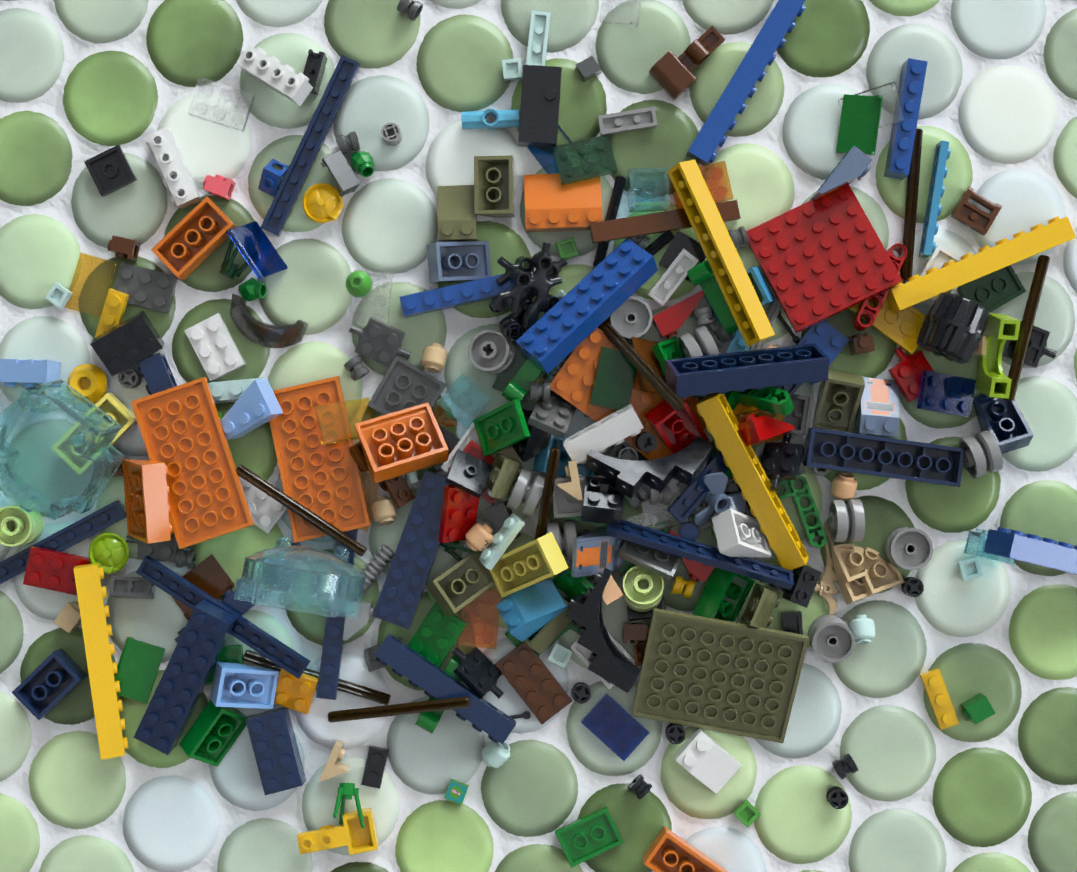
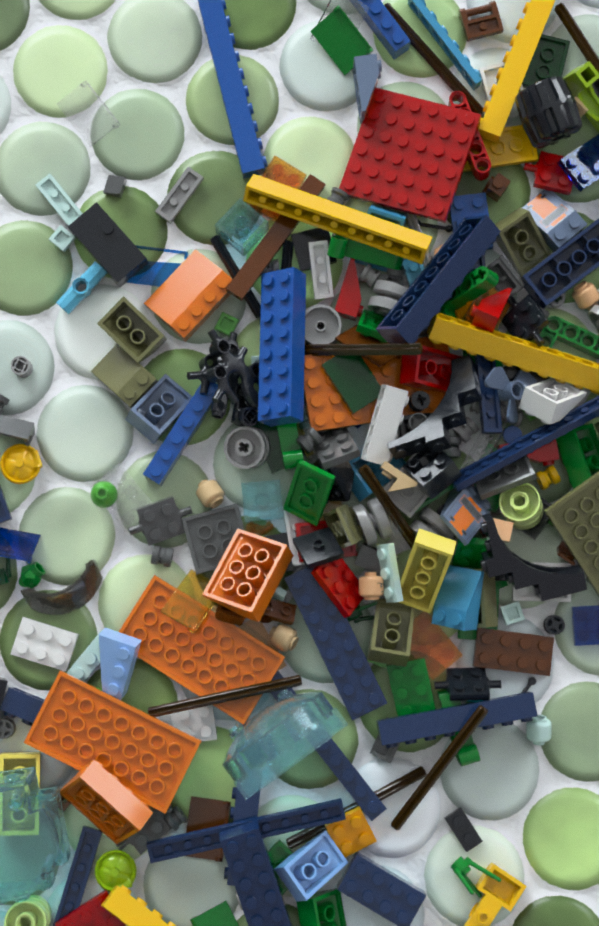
camera: 55 degrees left, 5 degrees down
(130, 587) = (157, 879): dark grey hinge -> none
(333, 766) = (434, 860): tan slope -> none
(354, 625) = (344, 737): light grey slope -> none
(362, 163) = (21, 407): green rock -> none
(376, 565) = (317, 677): light grey piece -> none
(456, 791) = (538, 787): tile -> none
(584, 159) = (176, 250): clear green plate -> none
(634, 632) = (547, 543): reddish brown brick -> none
(675, 73) = (179, 129): reddish brown plate -> none

